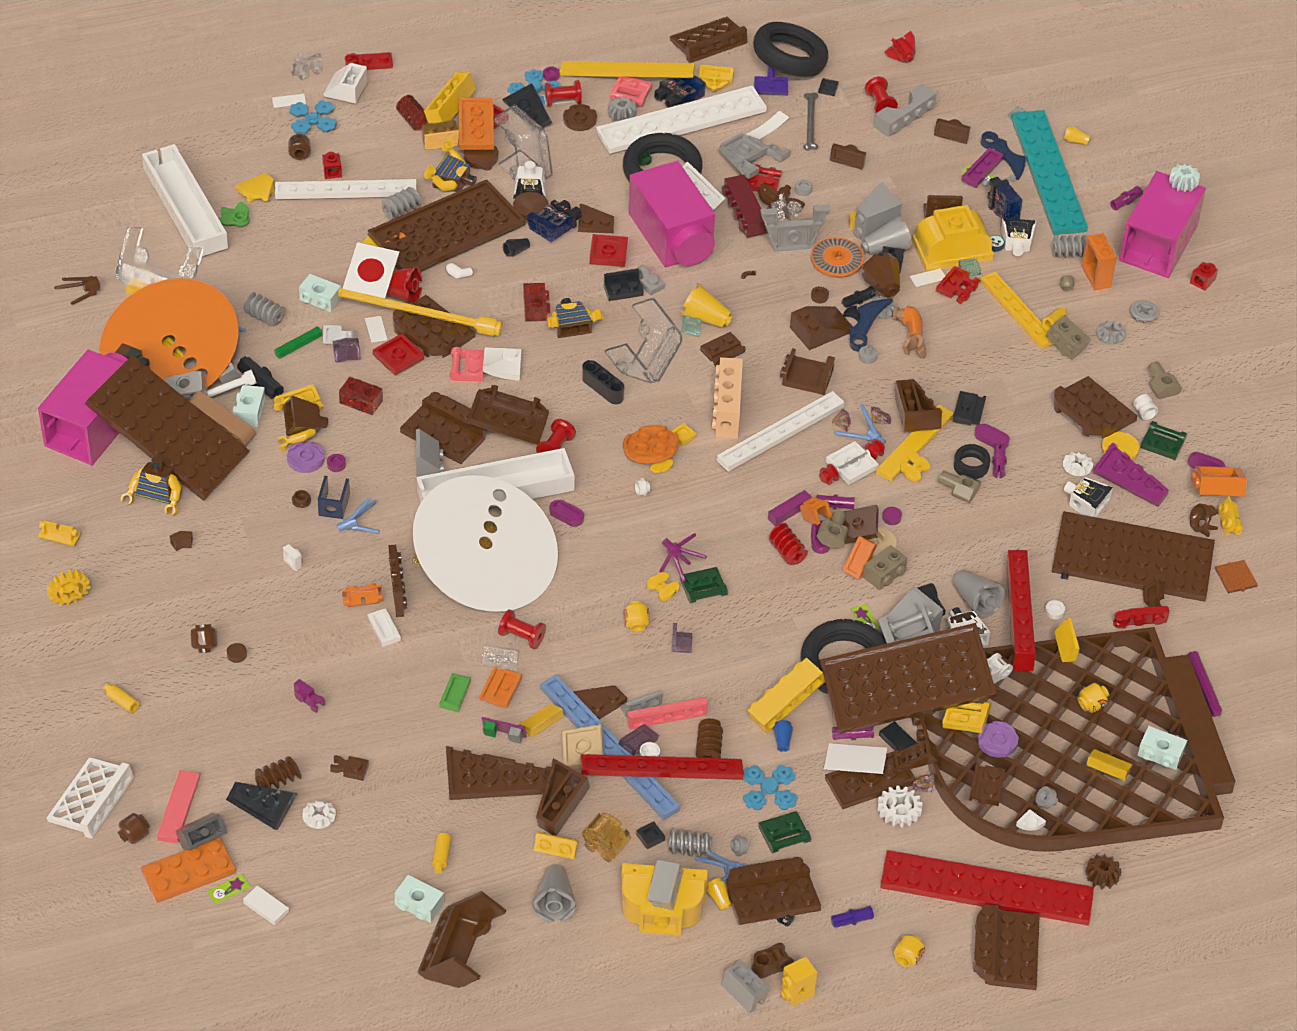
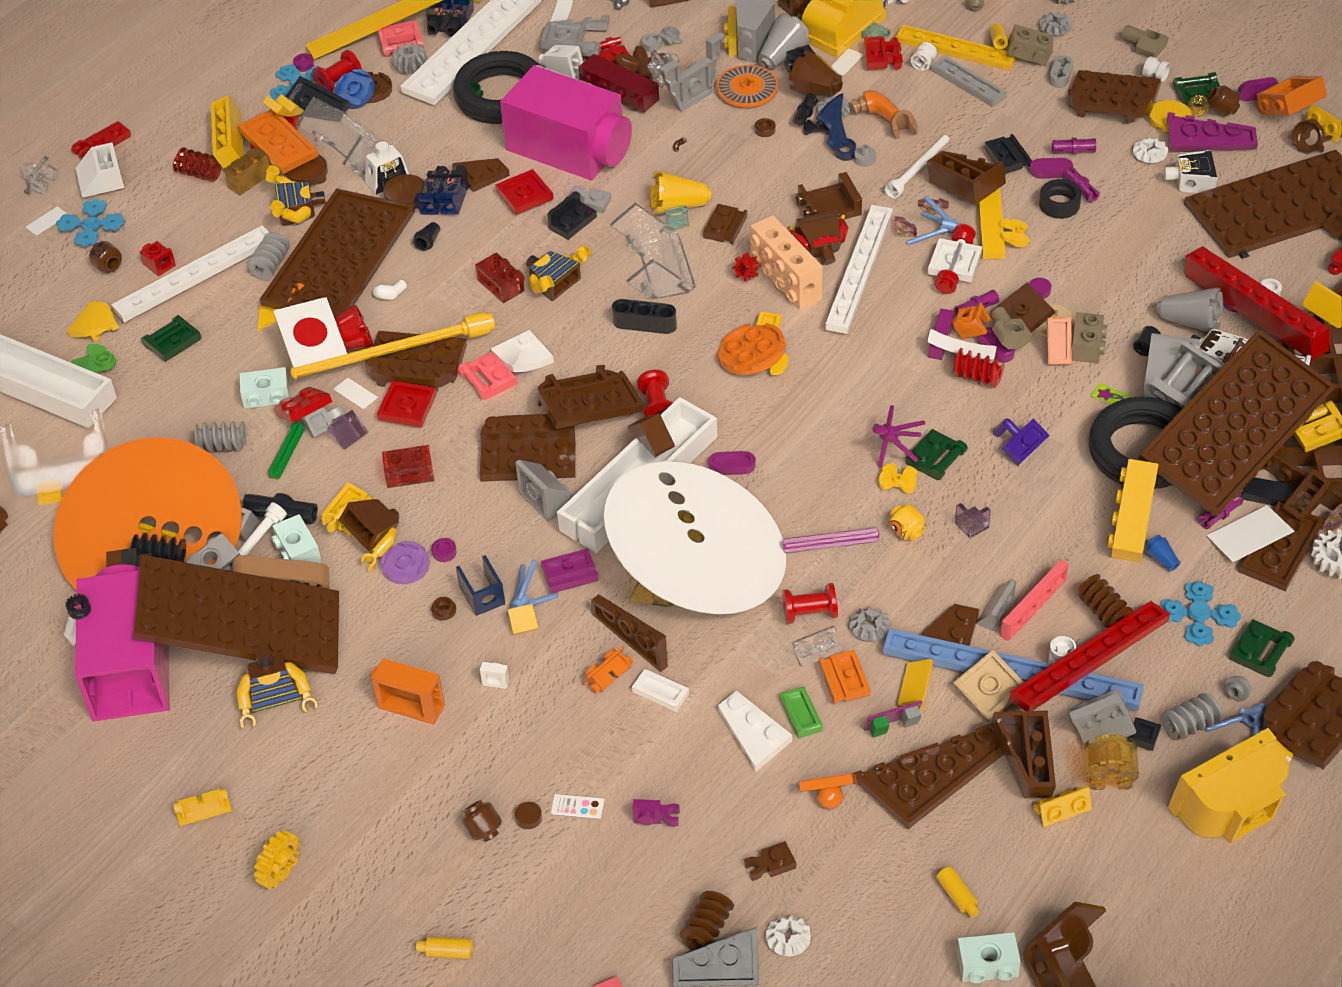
camera: 30 degrees left, 0 degrees up
(72, 362) = (78, 600): none -> black bush
(160, 360) = (160, 549): none -> black piece
(181, 540) = (351, 730): reddish brown piece -> none
(229, 535) = (392, 676): none -> orange window
(271, 666) = (577, 806): none -> white sticker
(293, 227) = (171, 338): none -> dark green plate
(328, 317) = (306, 402): none -> red plate
(341, 533) = (522, 619): none -> yellow tile
(396, 520) = (569, 570): none -> magenta plate
(415, 686) = (755, 731): none -> white wing
(421, 748) = (829, 790): none -> orange tile
(499, 100) = (283, 106): none -> yellow slope
(519, 463) = (652, 434): none -> reddish brown slope
(554, 895) = (1121, 857): light grey cone -> none
(558, 668) = (867, 631): none -> light grey gear
(564, 112) = (355, 87): none -> blue tile
(579, 599) = (830, 540): none -> axle
(631, 808) = (1102, 717): none -> light grey bracket
(634, 740) = (1035, 643): tile -> none
(642, 487) = (782, 395): white plate -> none
(665, 884) = (1250, 769): light grey hinge -> none
(703, 386) = (742, 262): none -> red gear
(718, 167) = (563, 60): none -> white torso
(767, 610) = (1023, 440): none -> dark purple plate
(774, 392) = (821, 234): none -> reddish brown torso
(785, 516) = (953, 345): none -> white sticker
(818, 325) = (794, 155): reddish brown slope -> none
(820, 189) = (670, 34): none -> light grey plate
(864, 388) = (896, 187): none -> white piece
(964, 486) = (1079, 224): dark tan piece -> none
(984, 303) = (923, 56): none -> white wheel
(1000, 340) = (968, 81): none -> light grey tile
(1023, 429) = (1074, 145): none -> magenta pin
(1076, 371) = (1058, 70): none -> light grey beam
(1144, 447) = (1198, 99): none -> clear yellow plate
(1168, 457) = (1223, 100): none -> reddish brown head

